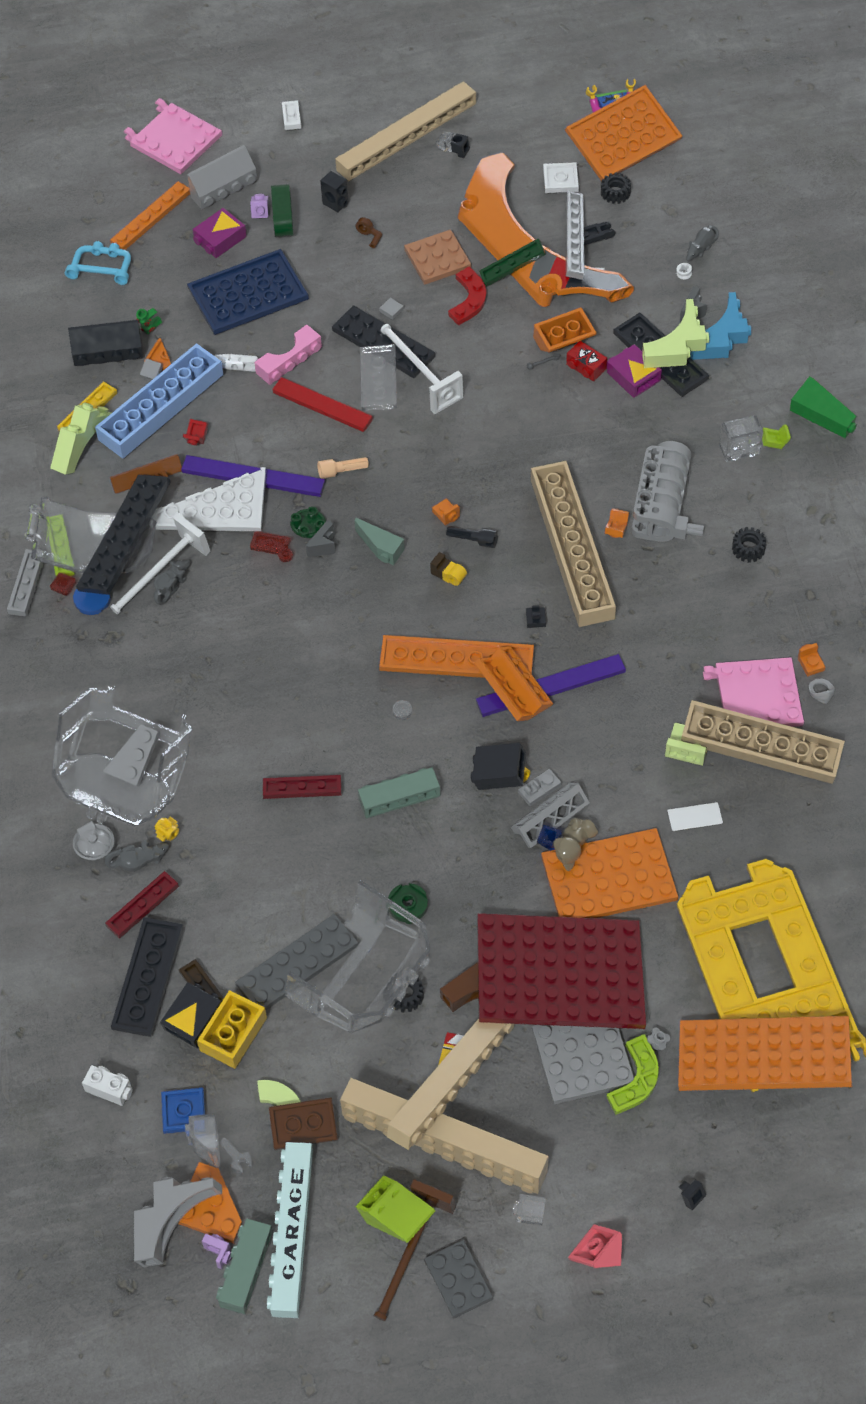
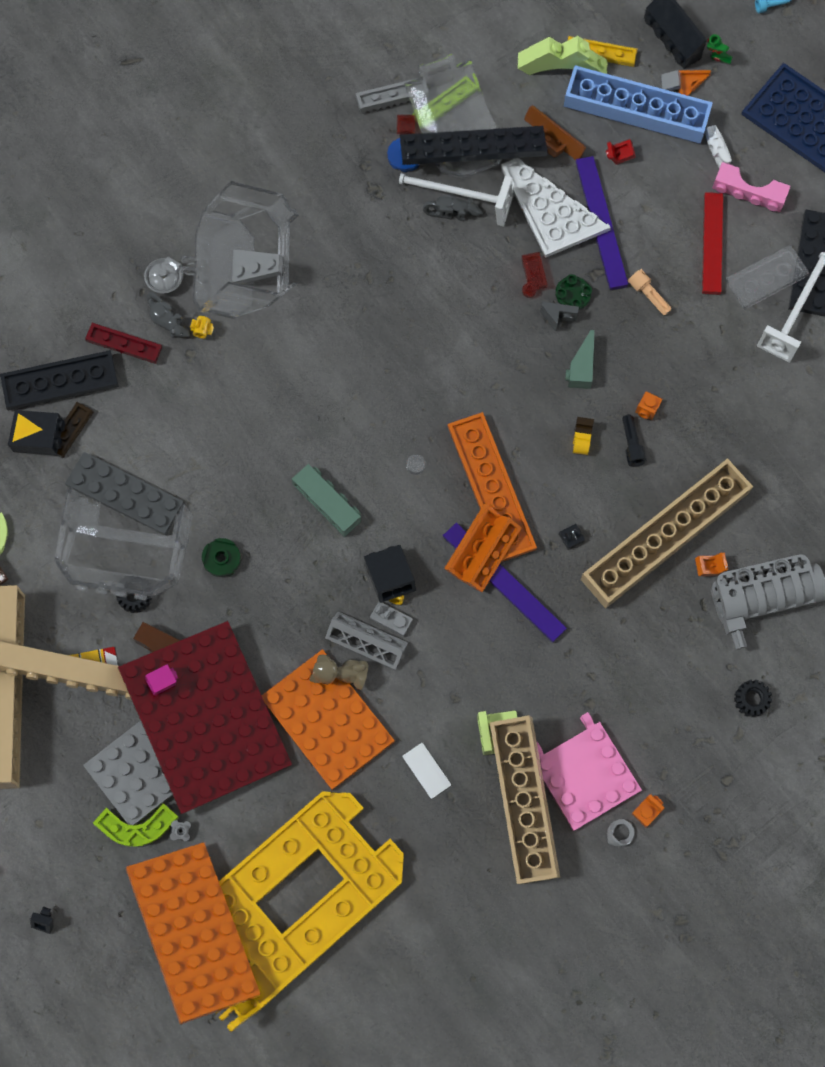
camera: 60 degrees right, 15 degrees up
(232, 1029) = (34, 470): yellow brick -> none
(302, 786) = (295, 416): dark red plate -> none
(513, 982) = (161, 679): none -> dark pink brick
(547, 837) = (339, 649): clear blue slope -> none

